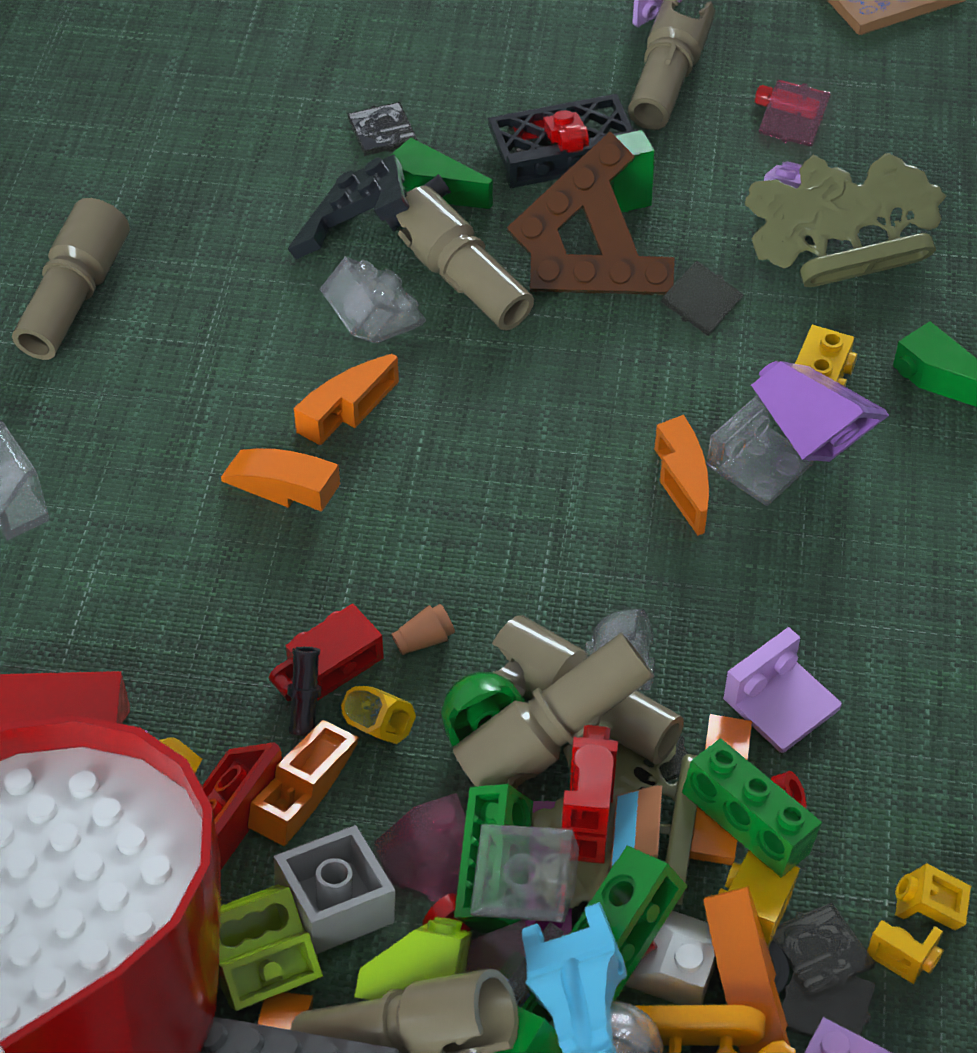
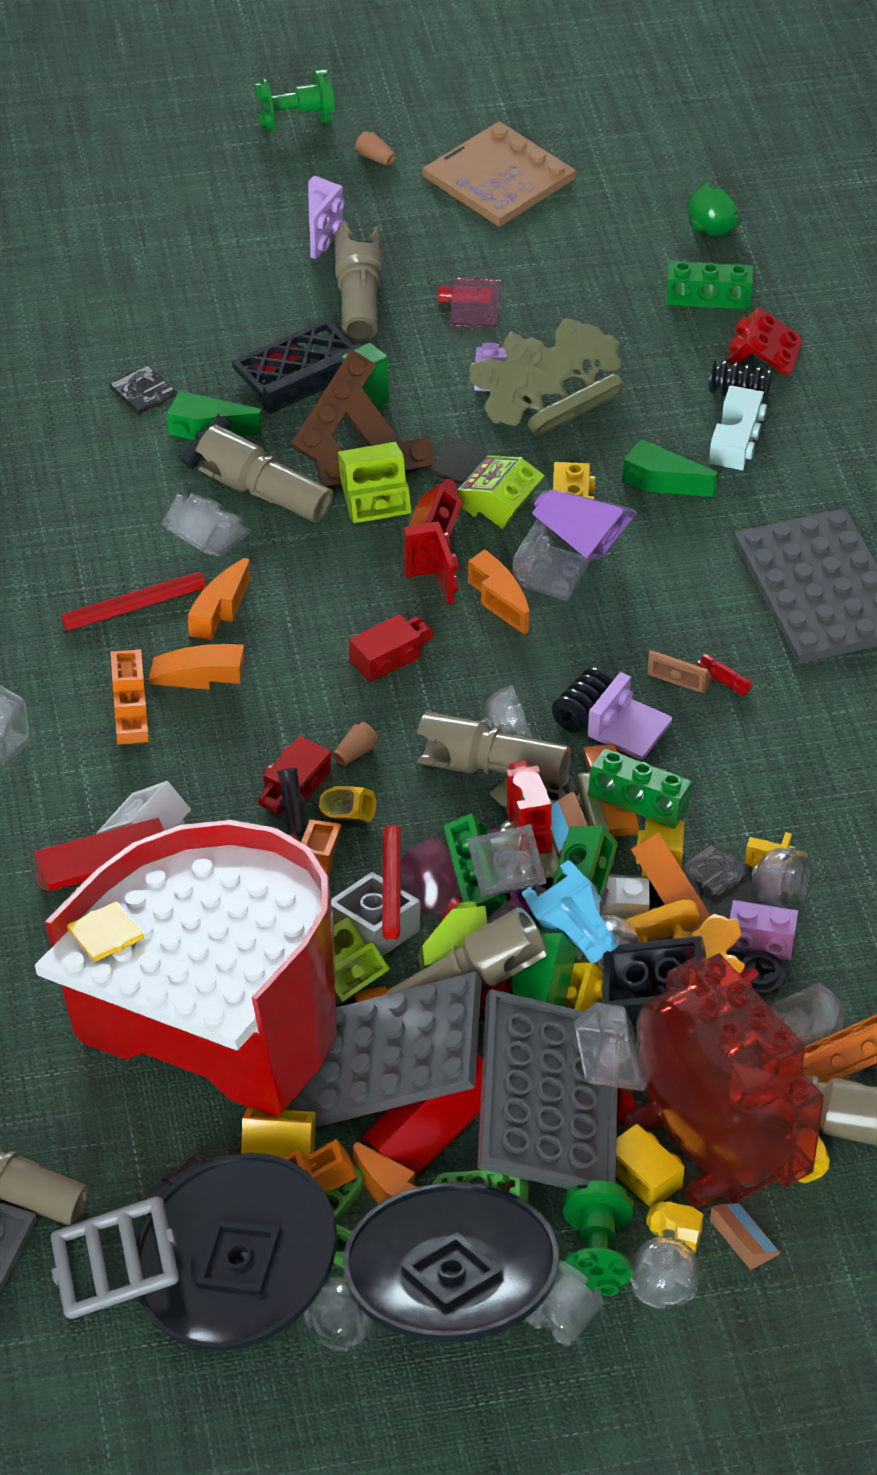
camera: 20 degrees left, 5 degrees down
(135, 650) = (149, 804): none -> white slope
(186, 494) = (129, 697): none -> orange slope
(249, 373) = (133, 601): none -> red axle
(352, 194) = (155, 445): black wing -> none
(366, 855) = (391, 882): none -> red axle
(474, 702) = (427, 783): green cylinder -> none
(521, 509) = (388, 646): none -> red brick
(529, 735) = (470, 784): dark tan piece -> none
(567, 131) = (304, 356): red plate -> none
(586, 298) = (374, 482): none -> lime piece
(608, 403) = (428, 552): none -> red bracket
(640, 359) = (438, 505): none -> red brick
(729, 646) = (573, 705): none -> black piece
(733, 341) = (499, 488): none -> lime piece
(872, 642) = (678, 672): none -> nougat slope
(907, 997) = (782, 877): none -> clear cylinder
(932, 661) = (725, 675): none -> red axle
(933, 895) = (777, 816): yellow bracket -> none

